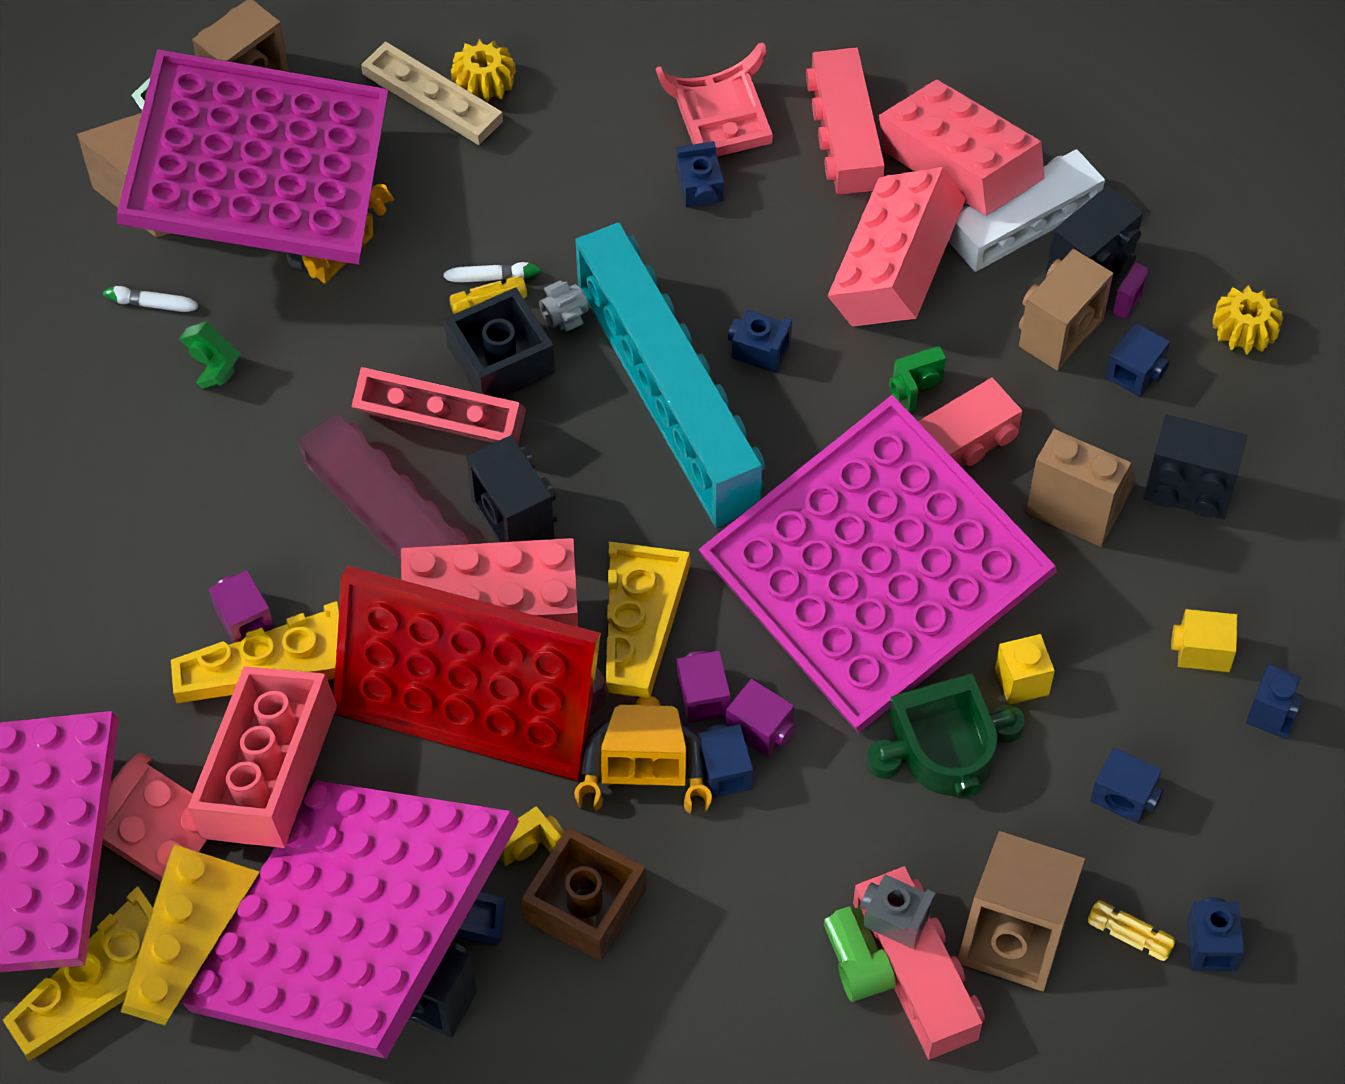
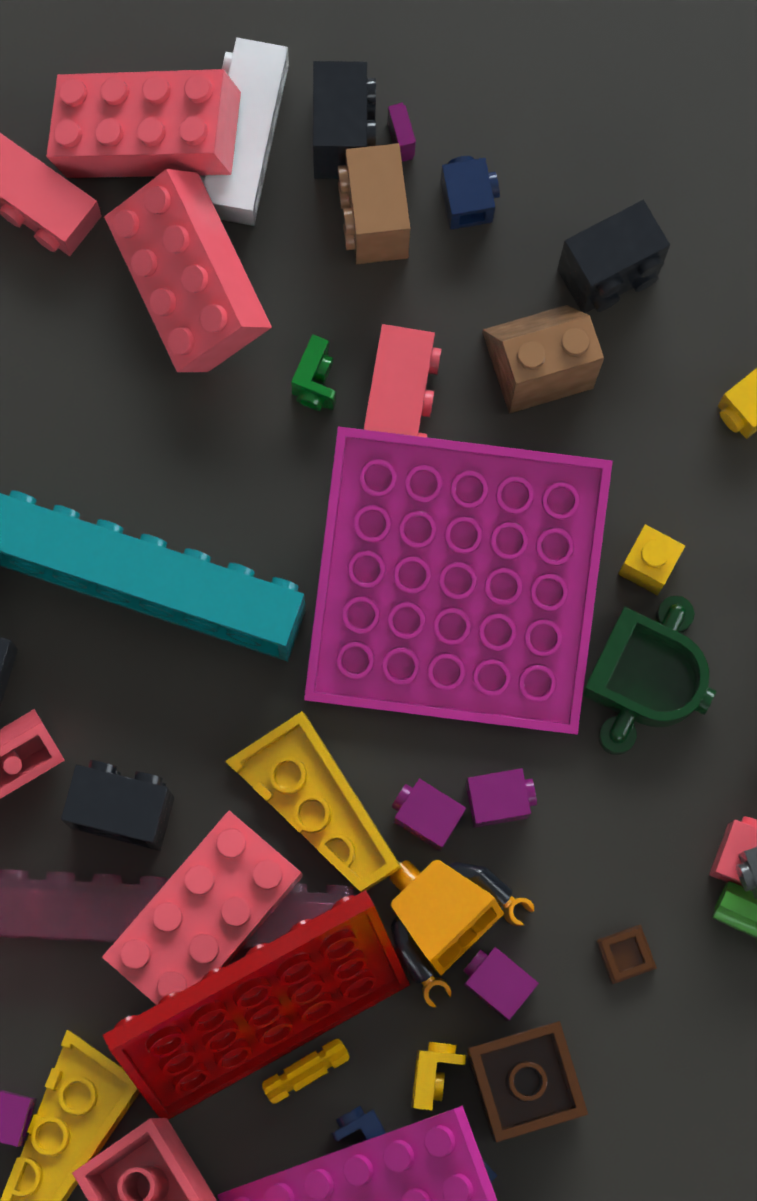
camera: 50 degrees left, 20 degrees up
(453, 764) = (305, 1071): none -> yellow axle
(636, 825) = (499, 982): none -> magenta brick
(726, 760) = (509, 858): dark blue brick -> none
(740, 894) = (626, 954): none -> reddish brown tile
(760, 340) = (170, 467): dark blue brick -> none
(1247, 319) = (517, 58): yellow gear -> none

